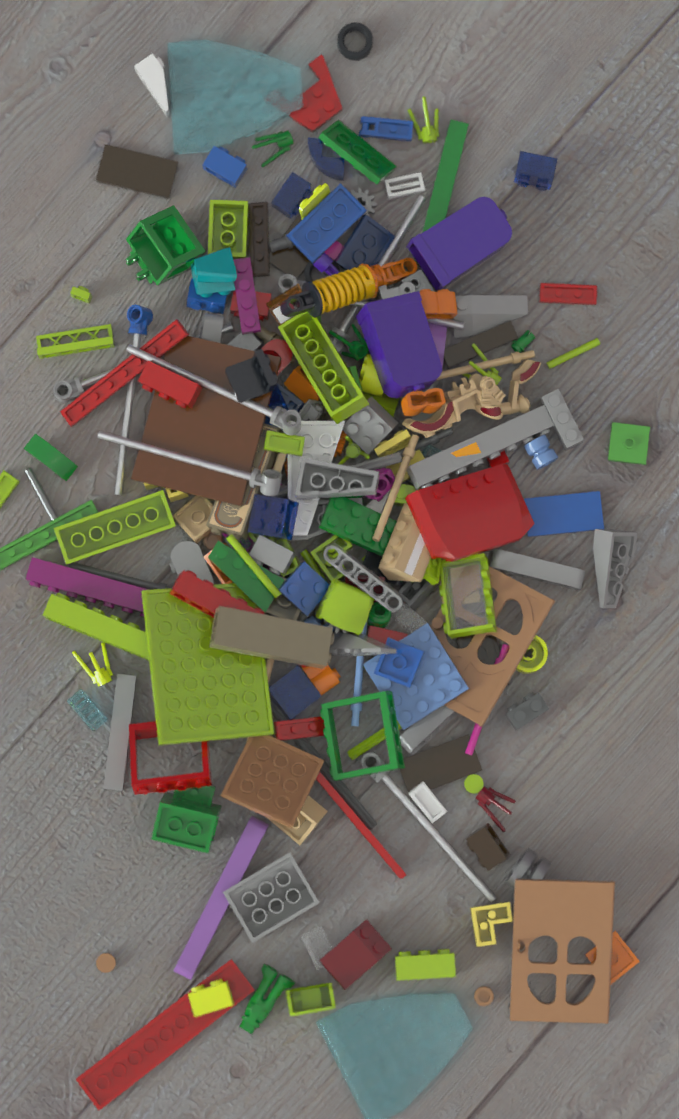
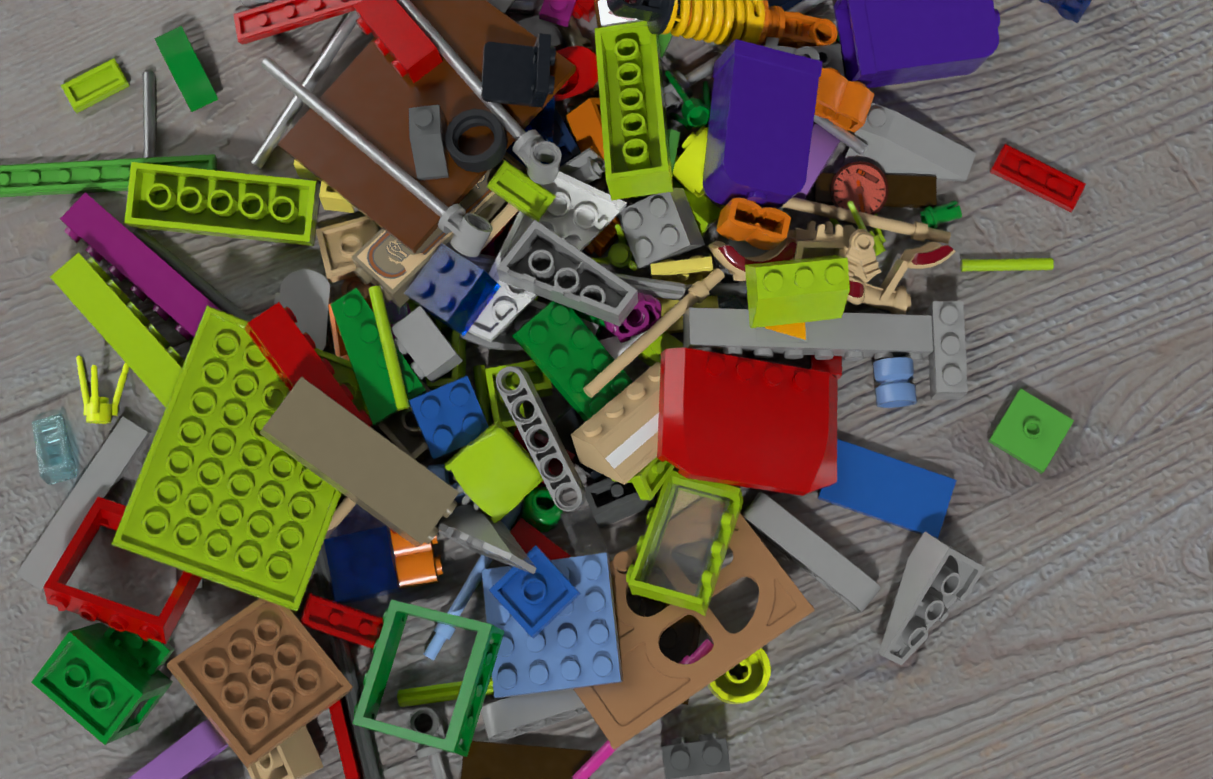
camera: 25 degrees right, 5 degrees down
(220, 440) = (428, 142): none -> dark grey slope
(236, 417) = (467, 120): none -> black tyre
(464, 428) = (797, 290): none -> lime slope
(470, 347) = (861, 184): none -> clear red sticker

